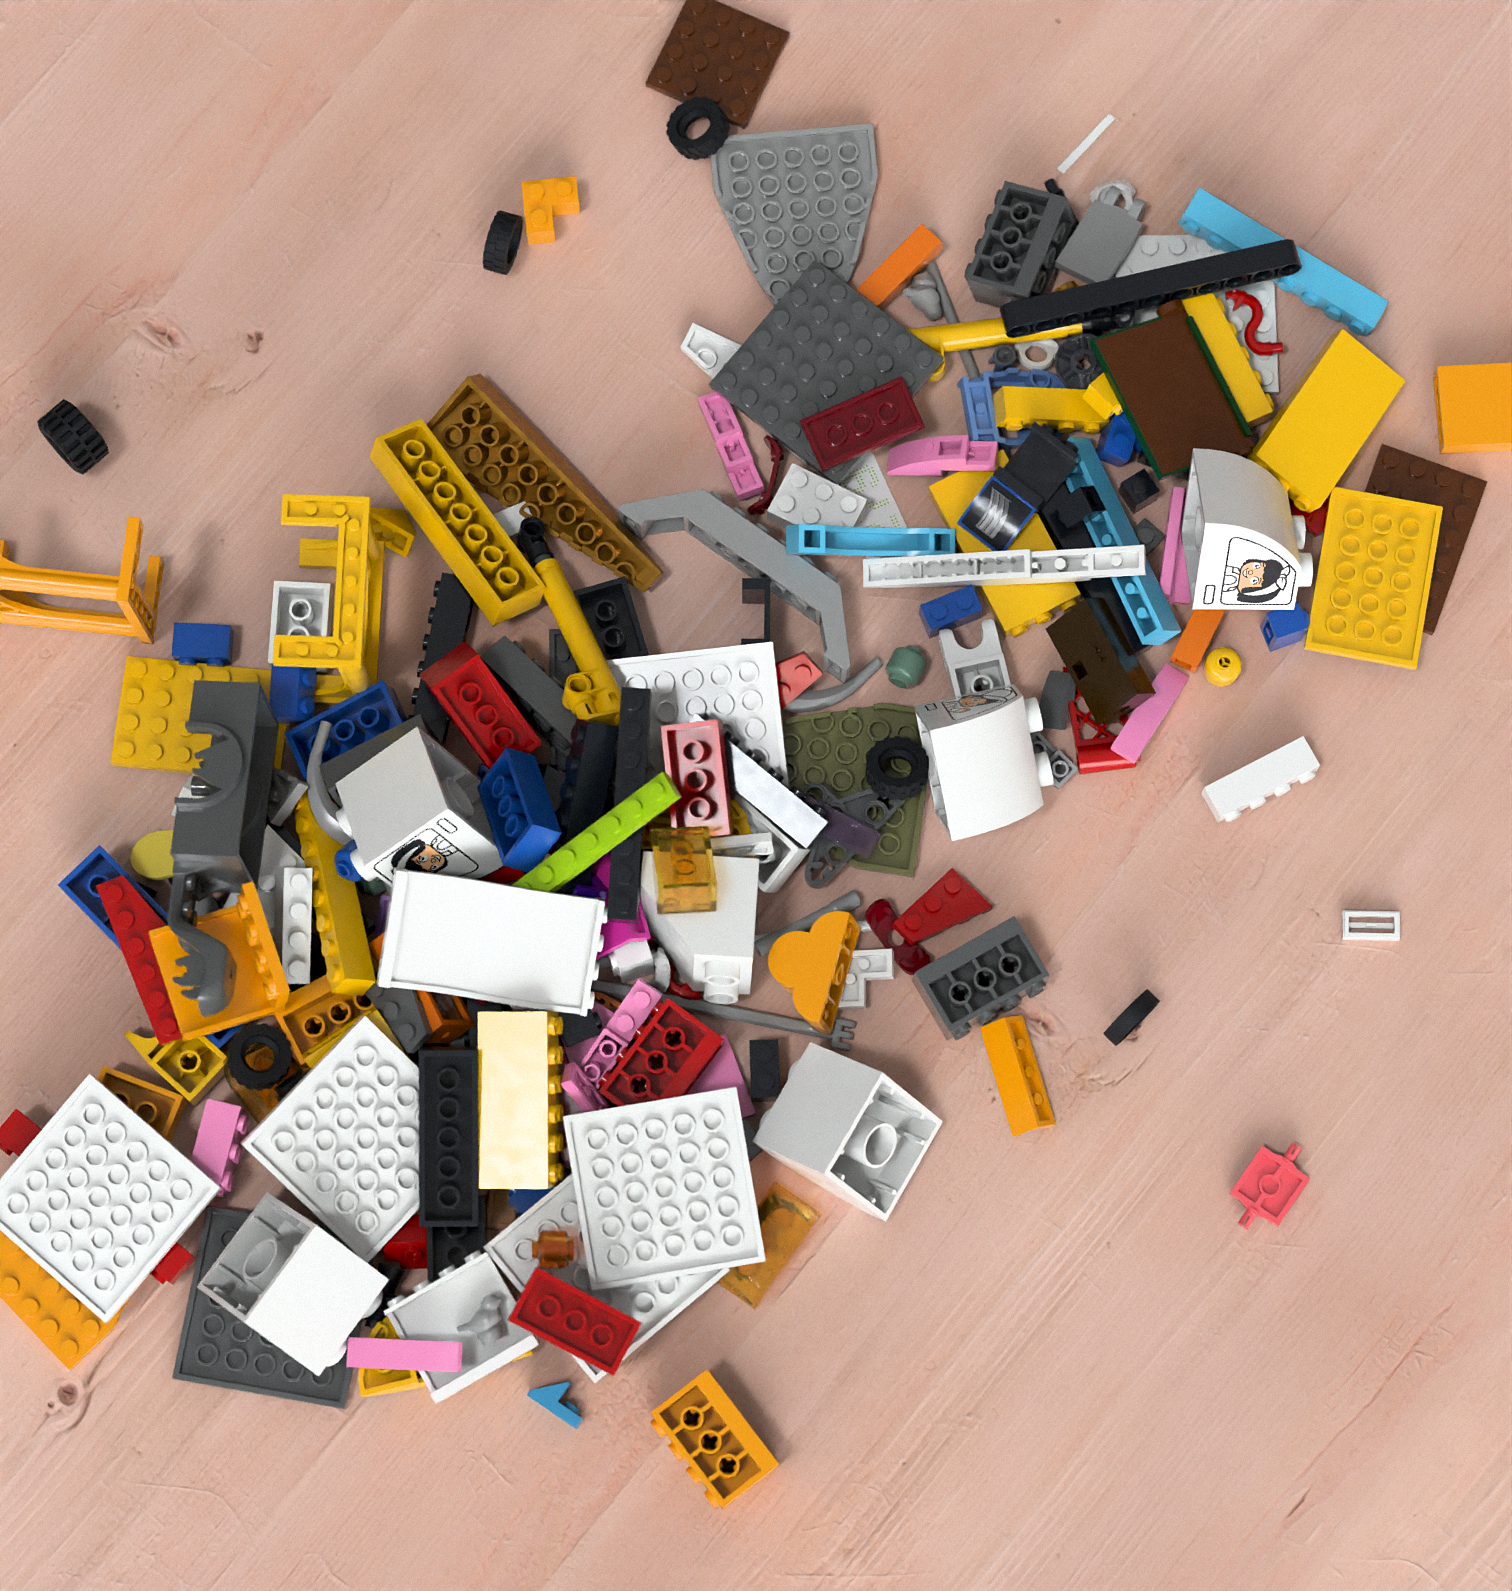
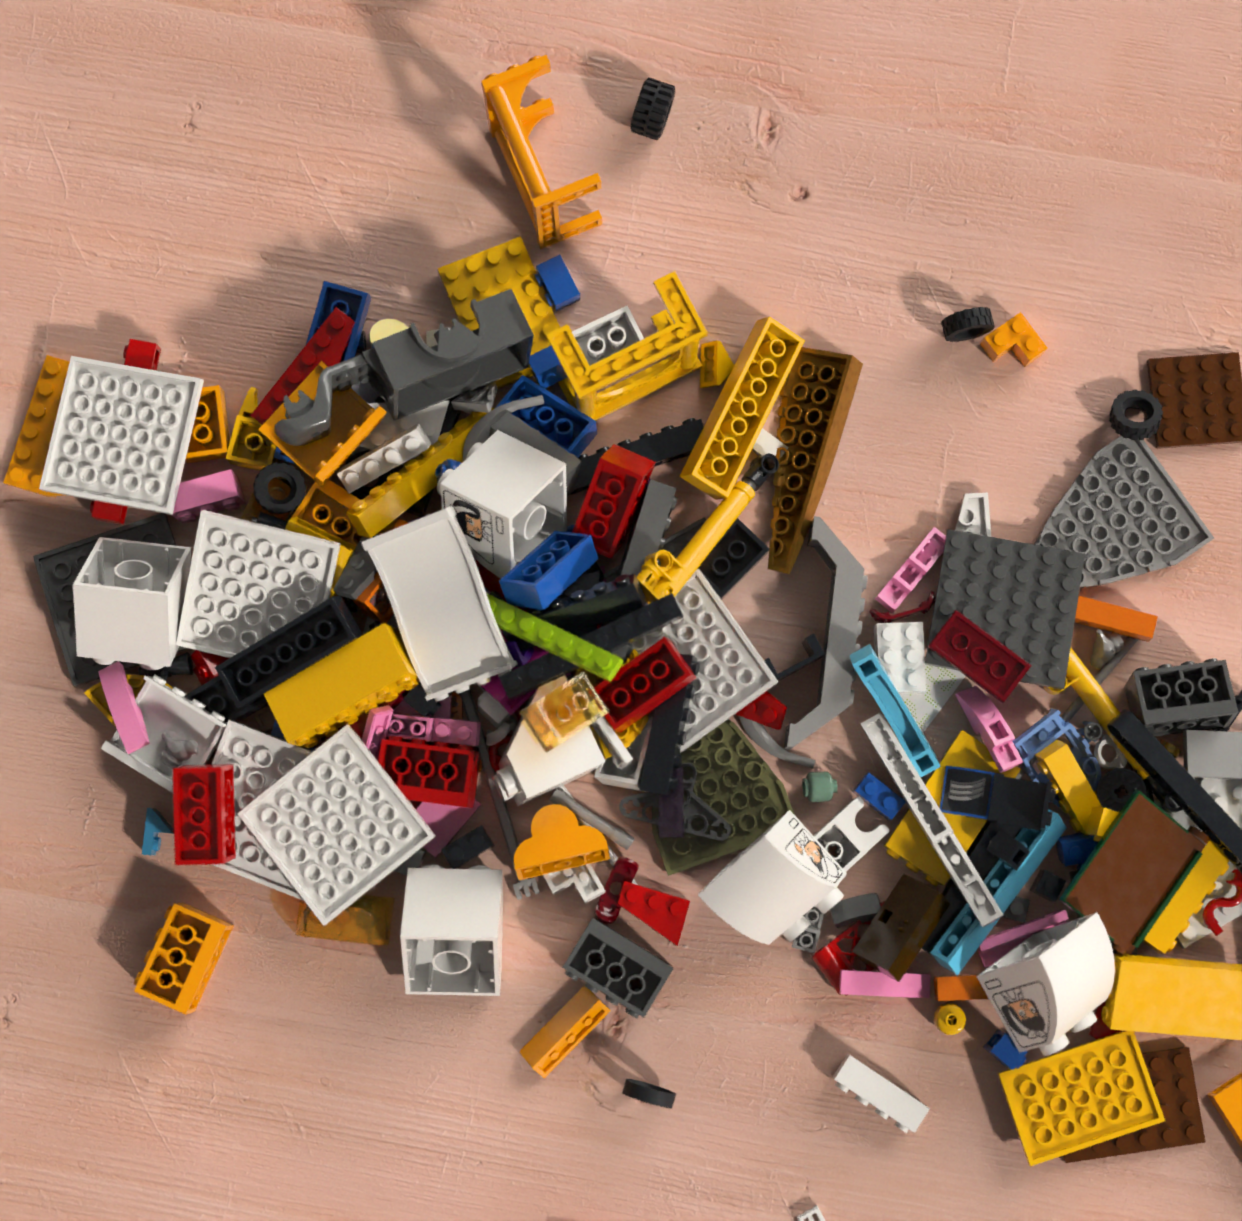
camera: 60 degrees right, 5 degrees up
(553, 1249) = (250, 770): clear orange head -> none
(897, 749) = (750, 810): black tyre -> none

